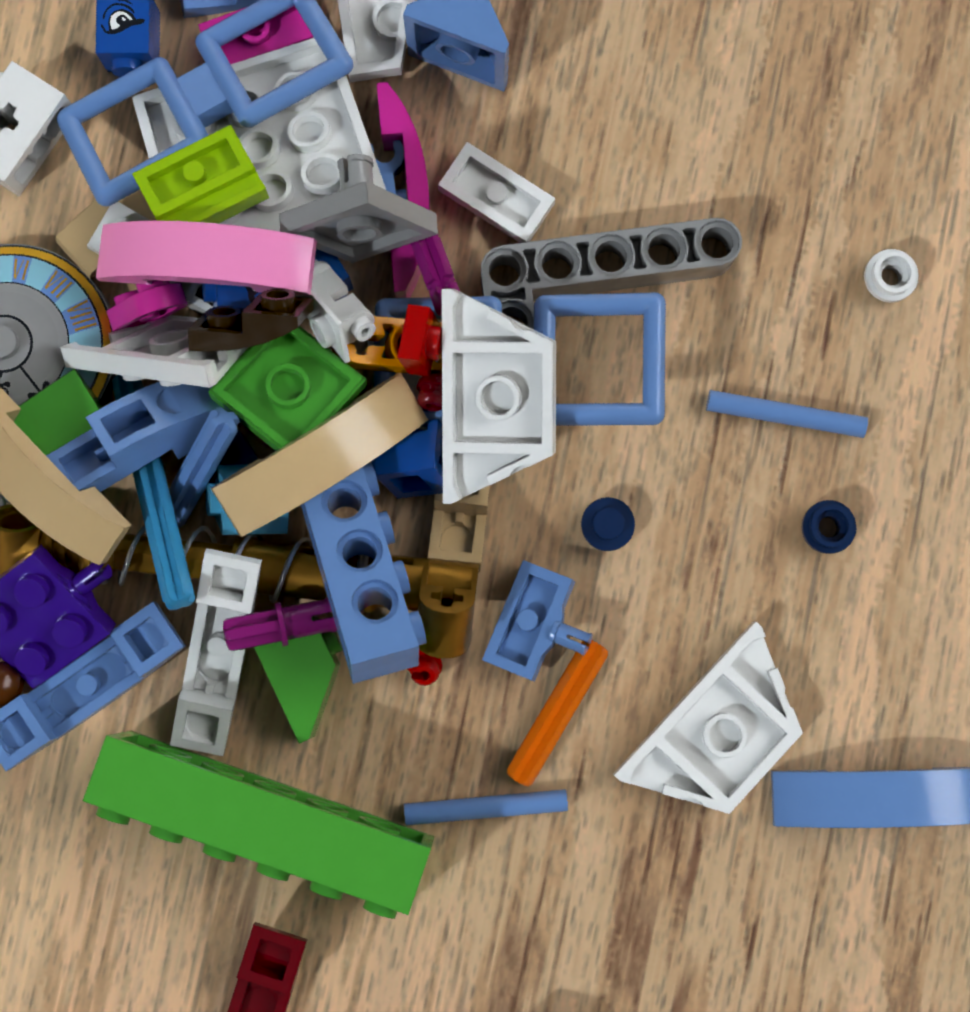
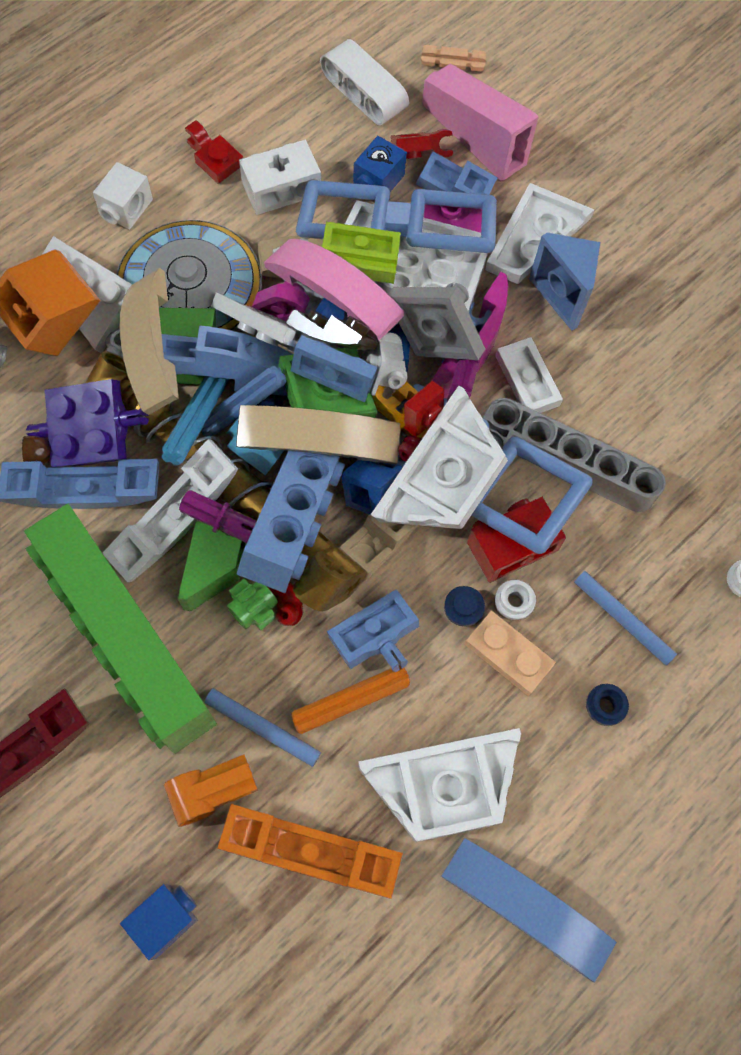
camera: 30 degrees right, 15 degrees down
(267, 373) = (333, 368): none -> medium blue plate
(382, 694) = (252, 604): none -> bright green gear
(475, 921) = (199, 792): none -> orange piece
(612, 381) = (502, 555): none -> red brick
(628, 898) = (310, 851): none -> orange slope
(664, 462) = (519, 589): none -> white plate
(690, 541) = (509, 653): none -> light nougat plate

